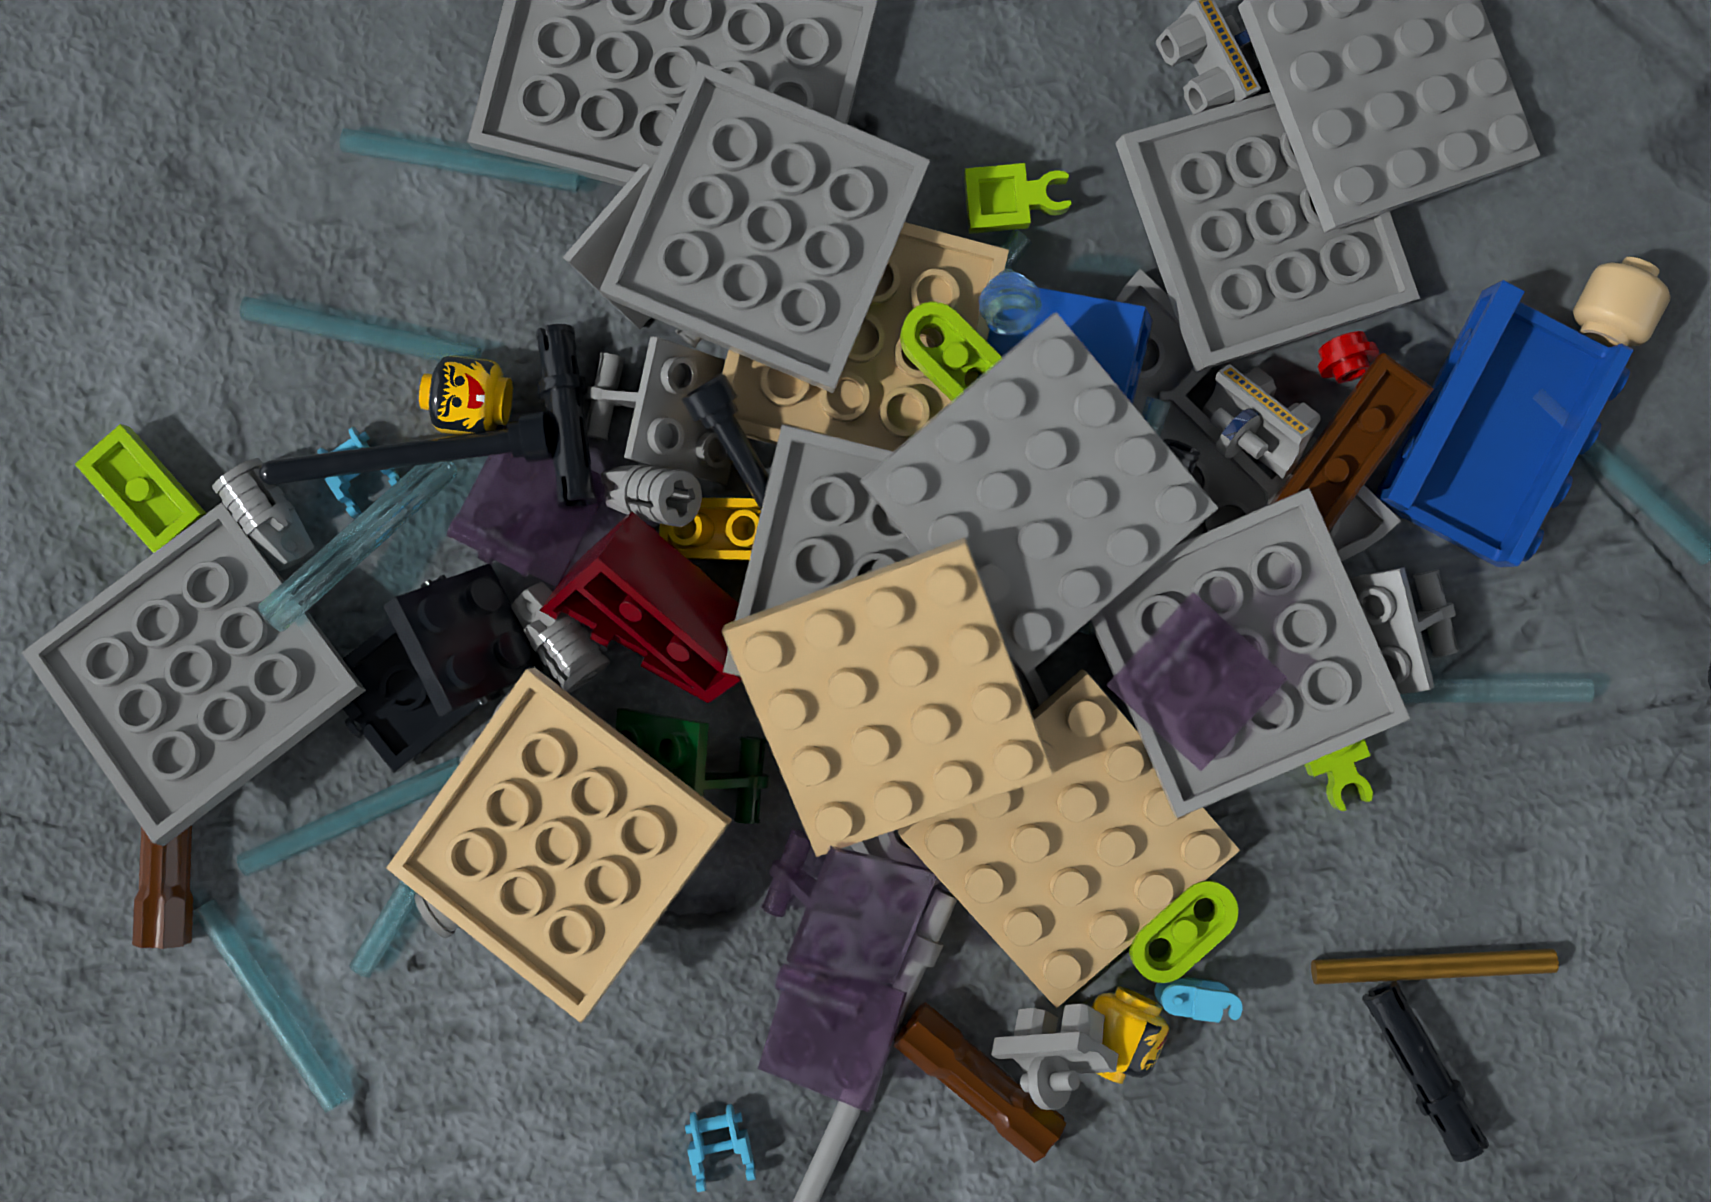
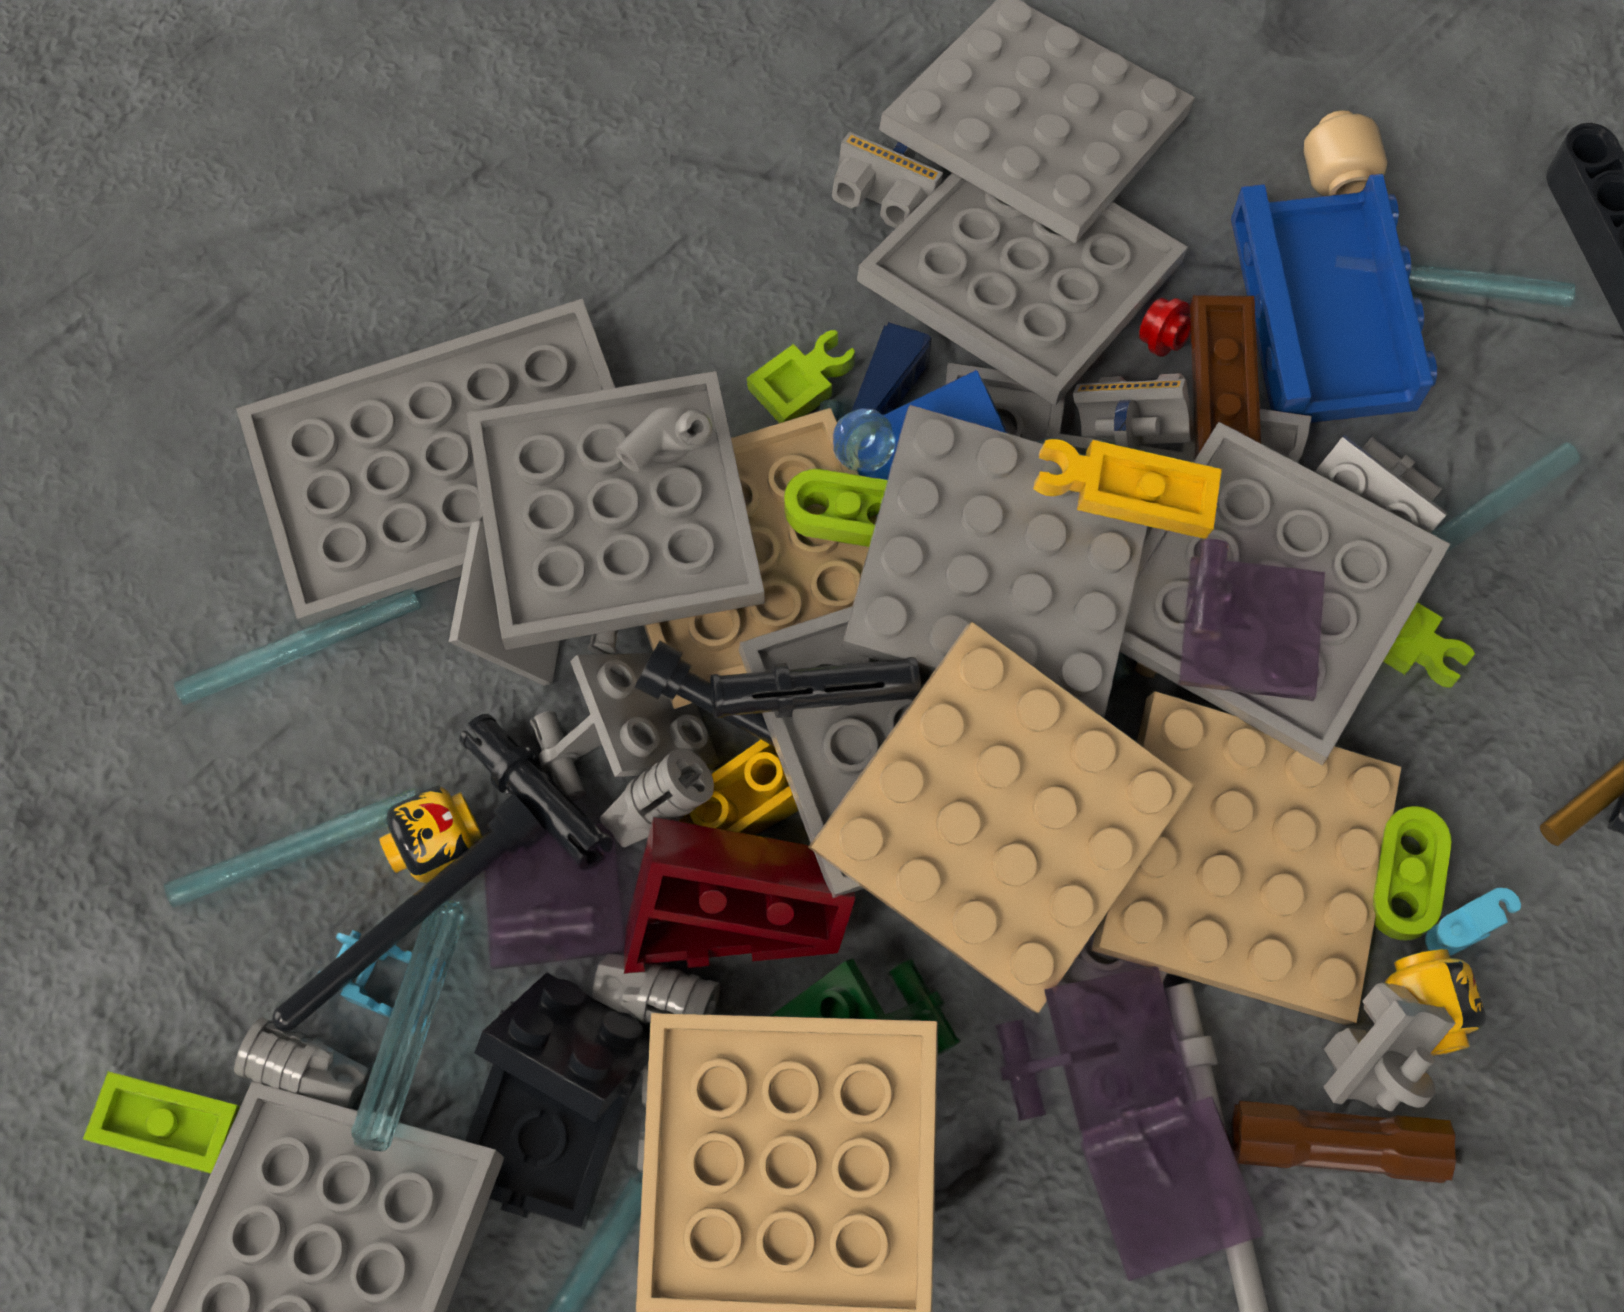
camera: 30 degrees left, 20 degrees down
(802, 500) = (738, 695): none -> black pin
(845, 192) = (664, 431): none -> light grey arm
(1089, 244) = (894, 368): none -> dark blue slope
(1186, 513) = (1134, 486): none -> yellow plate

